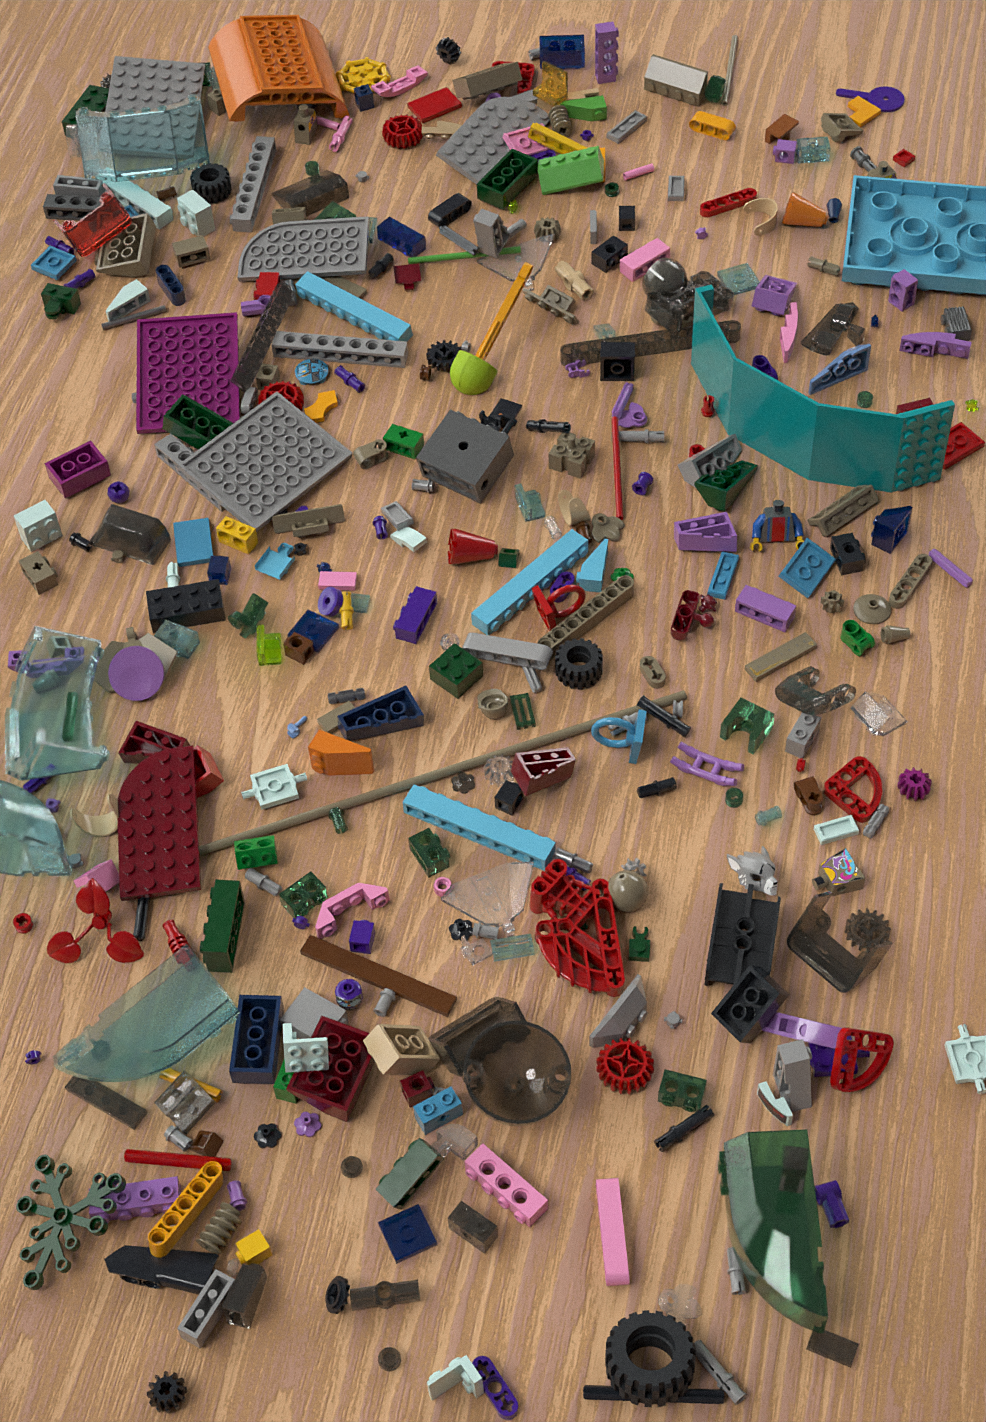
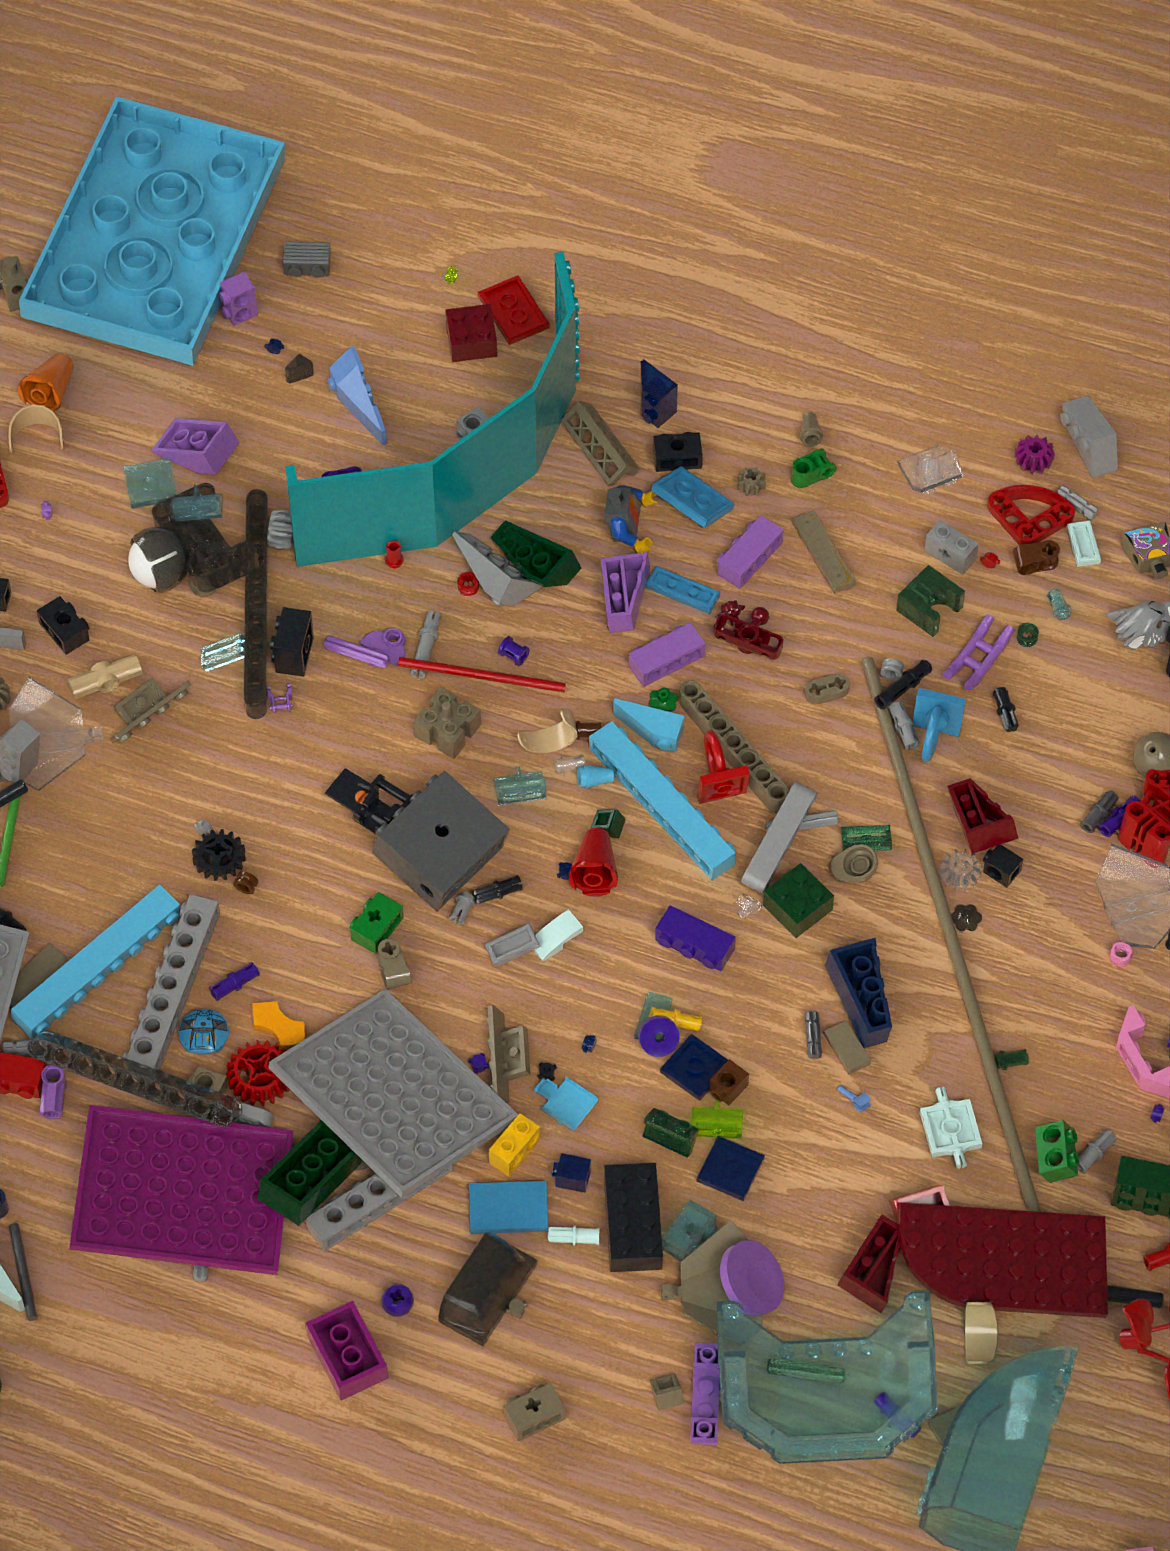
camera: 85 degrees left, 5 degrees up
(23, 917) = (1126, 1429): red bush -> none
(38, 525) = (454, 1403): light aqua brick -> none
(52, 805) = (944, 1401): medium lavender piece -> none
(77, 540) = (482, 1355): black pin -> none
(103, 873) = (1073, 1333): bright pink panel -> none
(232, 618) = (665, 1156): clear green axle -> none
(232, 660) = (730, 1168): none -> clear blue tile
(301, 893) = (1117, 1107): clear green brick -> none
(338, 580) = (613, 1030): bright pink tile -> none
(339, 756) = (918, 1051): orange slope -> none
(380, 526) = (529, 967): dark purple pin -> none
(407, 274) = (30, 887): dark red piece -> none
(425, 853) = (1077, 965): clear green brick -> none
(441, 502) = (497, 890): none -> black axle
(471, 372) = (268, 821): piece -> none
(479, 827) = (1041, 903): medium azure brick -> none
(543, 539) = (593, 776): none -> medium azure cone
(548, 426) = (380, 762): black pin -> none
(559, 583) = (672, 767): dark purple beam -> none
(581, 675) = (810, 745): black tyre -> none
(608, 528) = (581, 703): dark tan plate -> none
(632, 865) = (1123, 748): light grey gear -> none
(638, 262) = (86, 584): bright pink brick -> none
(659, 569) = (666, 654): none -> medium lavender brick
(703, 280) = (197, 506): none -> clear light blue panel
(788, 332) = (283, 443): bright pink slope -> none
(808, 700) = (908, 531): clear smoke connector -> none
(823, 265) = (154, 380): dark tan axle -> none
(828, 331) = (273, 395): clear smoke panel -> none
(834, 208) = (45, 347): dark blue cone -> none
(864, 399) = (413, 378): clear green bush -> none
(872, 609) = (762, 454): dark tan dish -> none
(913, 582) = (730, 396): dark tan beam -> none
(935, 342) = (336, 287): medium lavender slope -> none
(943, 817) = (1091, 435): none -> light grey wedge
(950, 568) = (714, 354): medium lavender axle -> none

